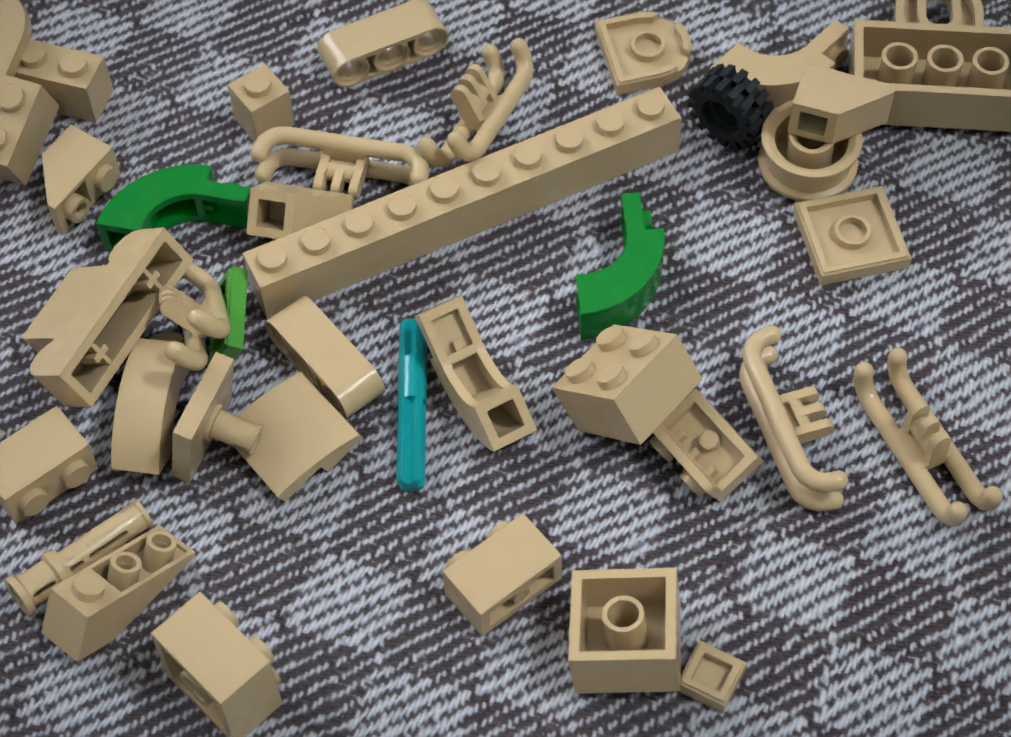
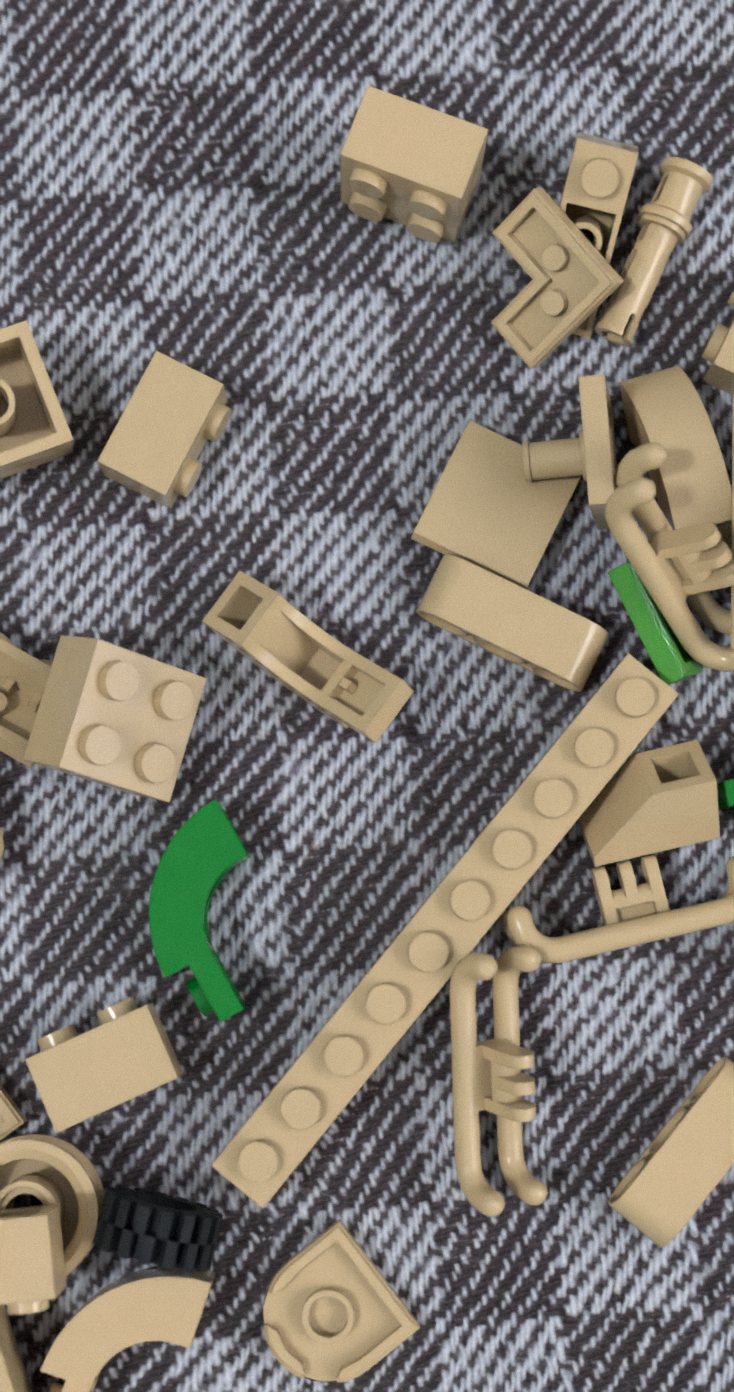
camera: 150 degrees right, 25 degrees up
(155, 549) = (565, 273): none -> tan tile
(411, 407) = (376, 610): teal axle -> none
(727, 209) = (104, 1065): none -> tan brick

